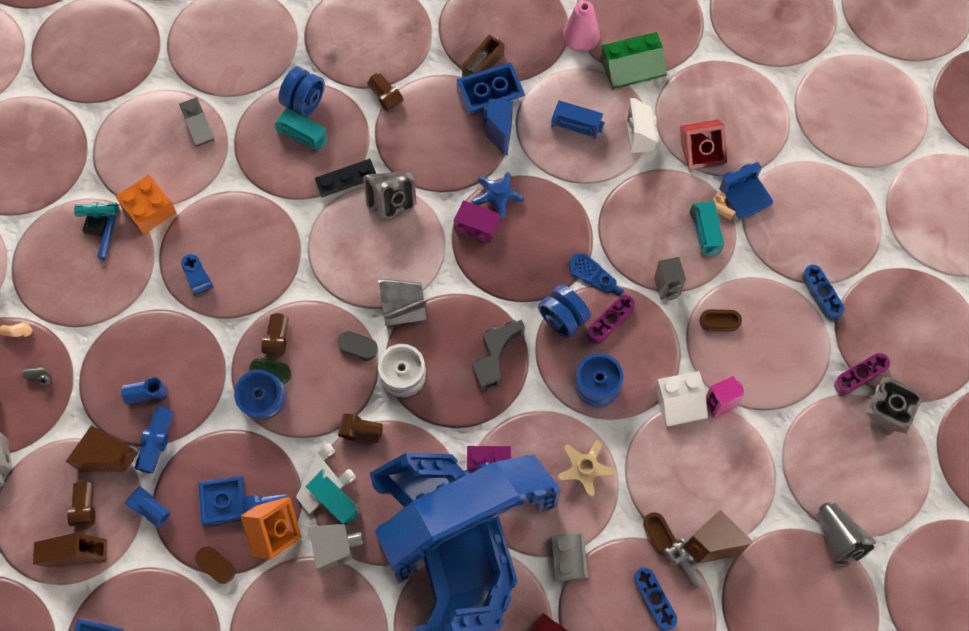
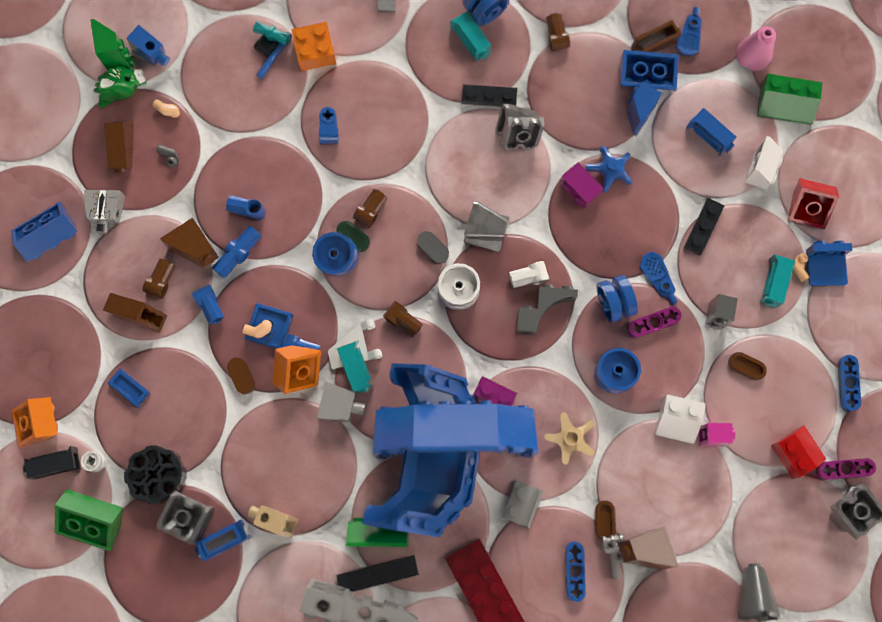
camera: 25 degrees right, 10 degrees up
(214, 509) = (258, 331): none -> light nougat arm
(472, 325) = (533, 274): none -> white piece
(513, 39) = (690, 31): none -> blue piece
(613, 209) = (703, 226): none -> black plate
(810, 379) = (799, 452): none -> red slope

